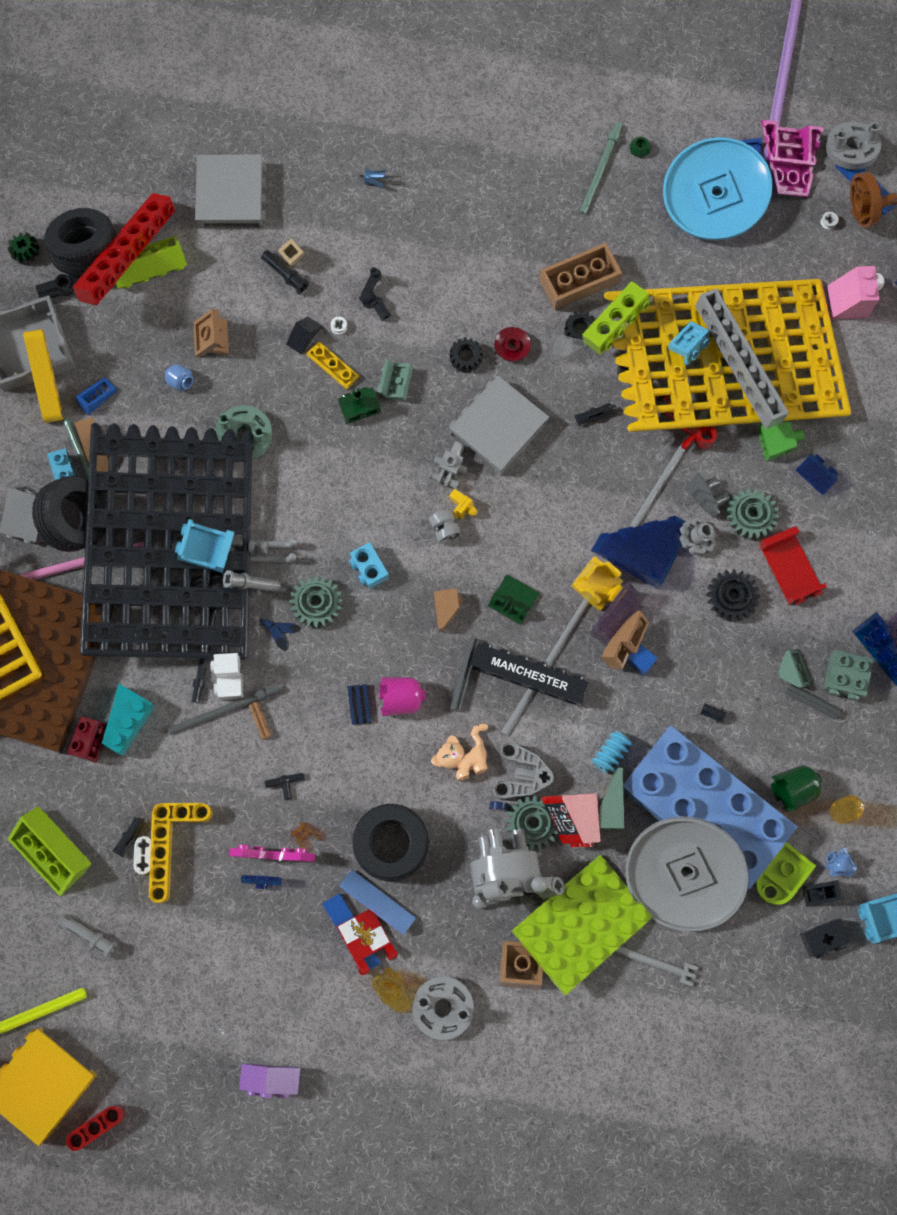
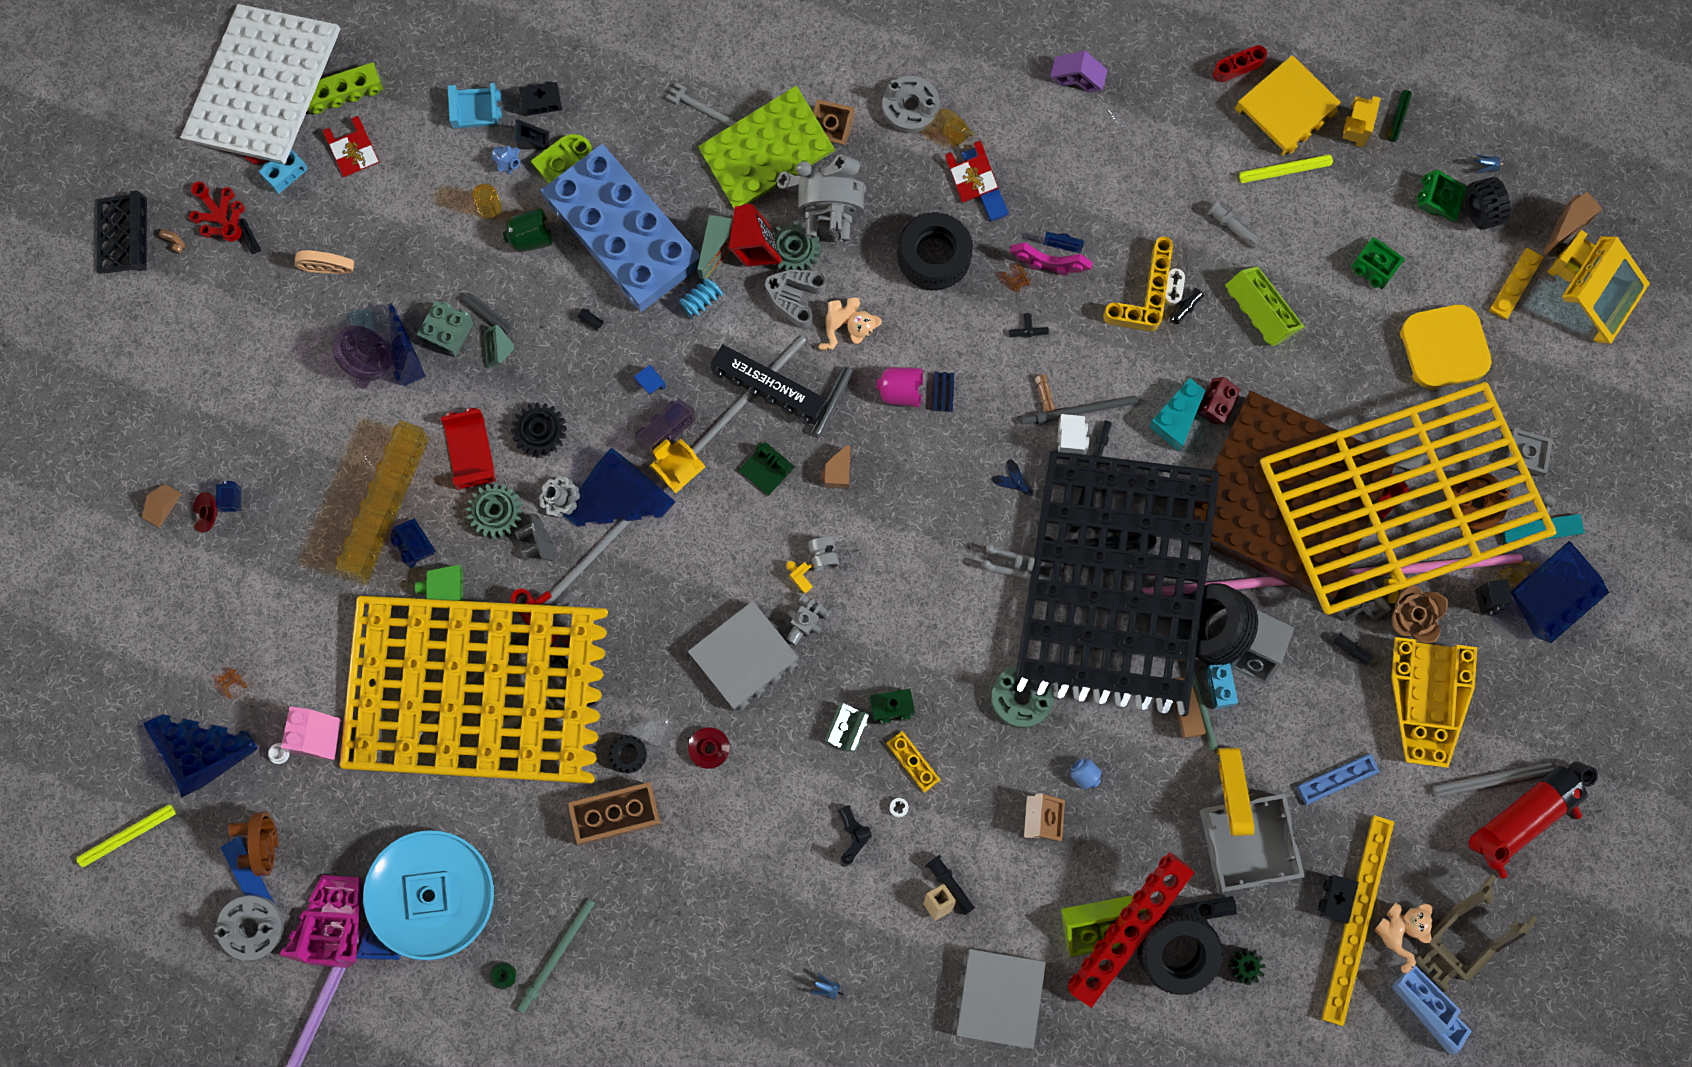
camera: 170 degrees left, 0 degrees up
(94, 404) = (1193, 762): blue slope -> none
(204, 546) = (1079, 562): medium azure panel -> none
(245, 581) = (1043, 523): light grey pin -> none
(303, 334) = (939, 804): black slope -> none
(321, 612) = (971, 511): sand green gear -> none
(372, 564) = (905, 527): medium azure brick -> none
(377, 902) = (956, 204): medium blue tile -> none
(466, 365) = (766, 732): black tyre -> none
(499, 806) = (823, 267): dark blue tile -> none
(594, 414) = (636, 652): black pin -> none
(625, 641) = (662, 398): medium nougat slope -> none
(632, 295) = (619, 724): lime brick -> none
(681, 899) = (681, 176): light grey dish -> none
(690, 342) = (514, 698): medium azure bracket -> none
(741, 359) = (464, 666): light grey brick -> none
(824, 222) = (312, 835): white bush -> none
(855, 499) = (382, 502): none -> clear yellow brick

